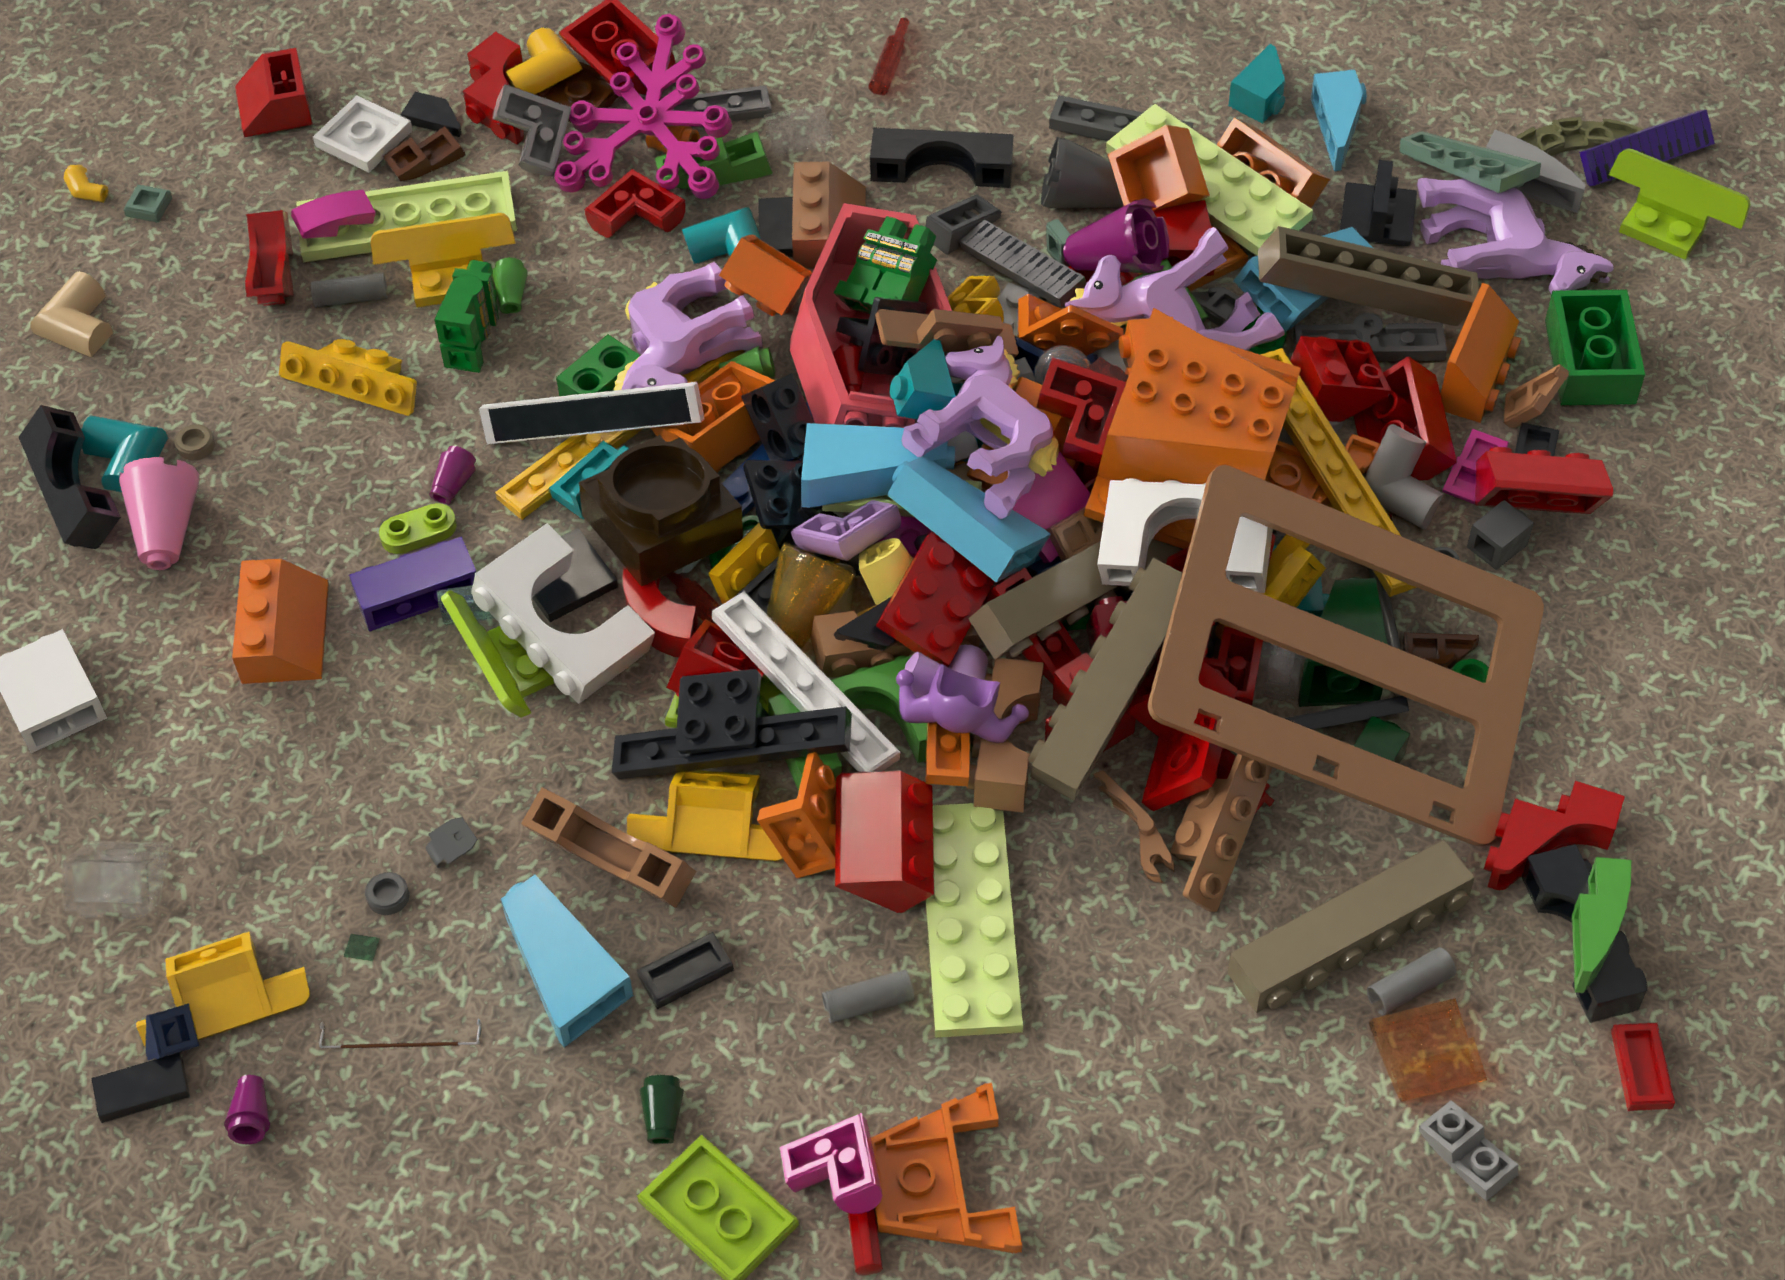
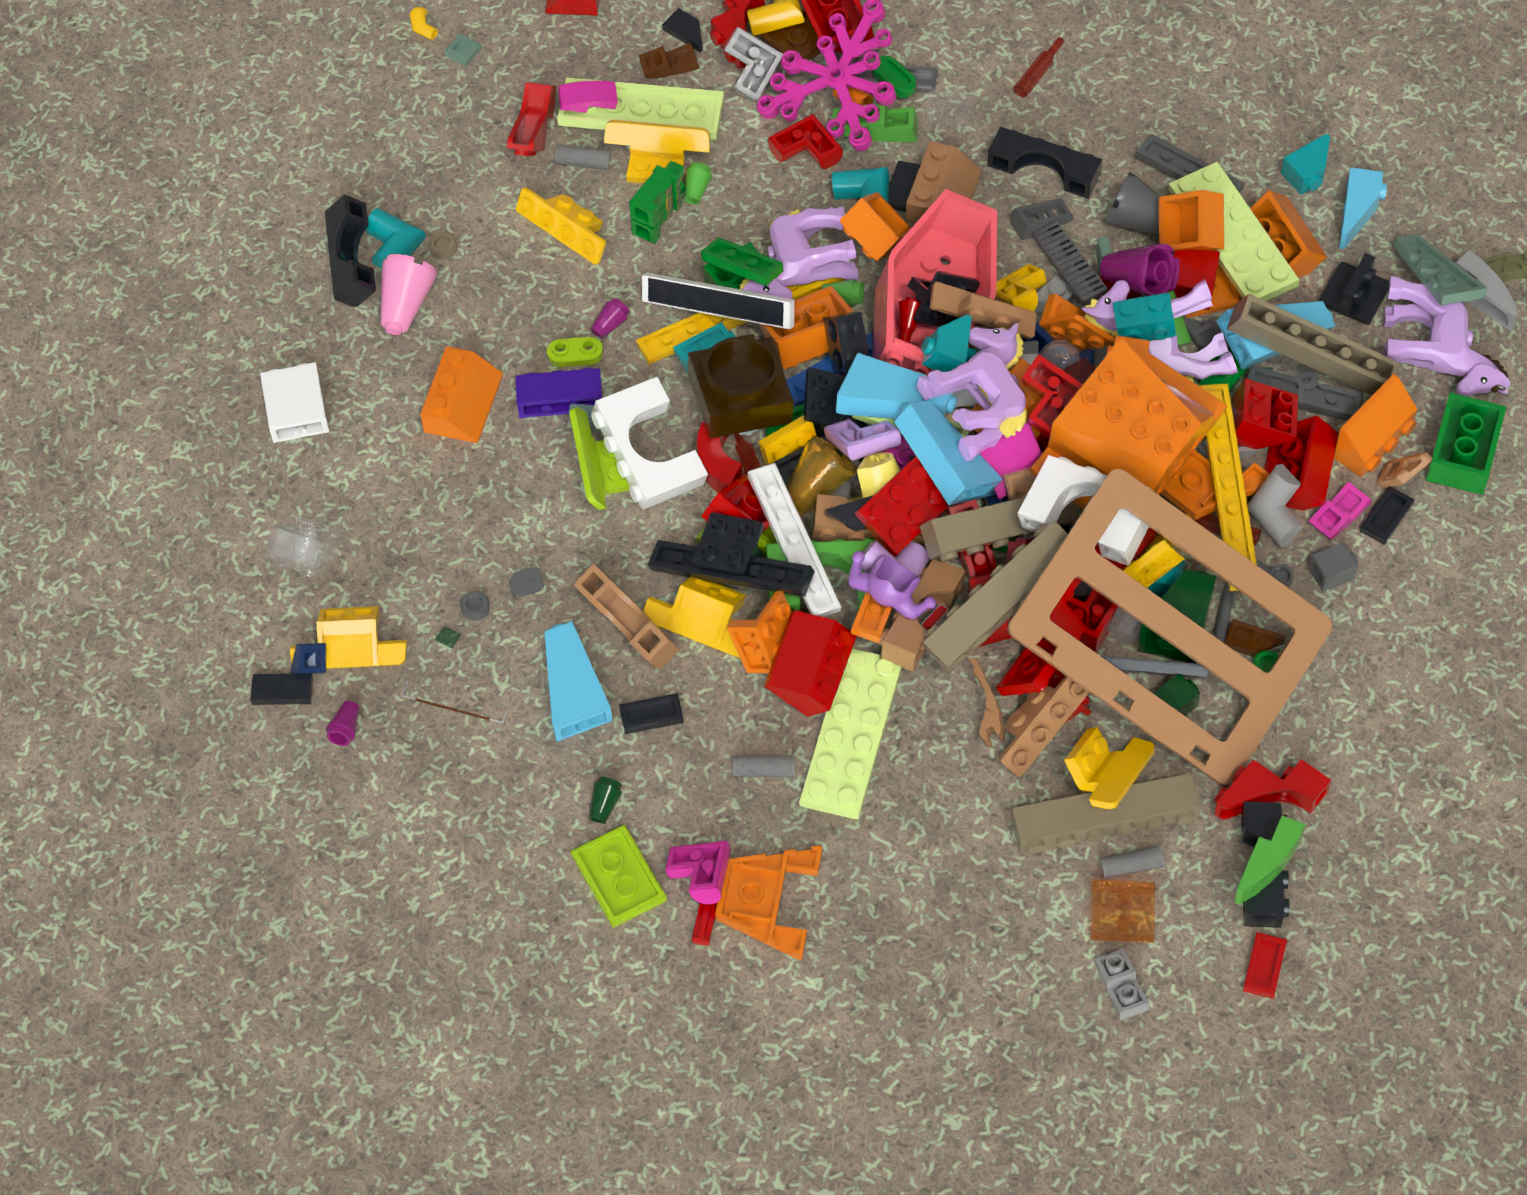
camera: 20 degrees right, 5 degrees up
(68, 317) = (382, 127): tan brick -> none
(362, 133) = (630, 33): white plate -> none
(581, 584) = (675, 422): black tile -> none
(609, 356) = (742, 261): none -> green plate
(713, 95) = (896, 74): none -> green tile
(889, 266) = (961, 247): green hips -> none
(1028, 734) = (937, 617): none -> red piece
(1158, 285) = (1145, 317): none -> teal bracket
(1336, 869) = (1107, 772): none -> yellow plate
(1541, 481) = (1377, 535): red slope -> none

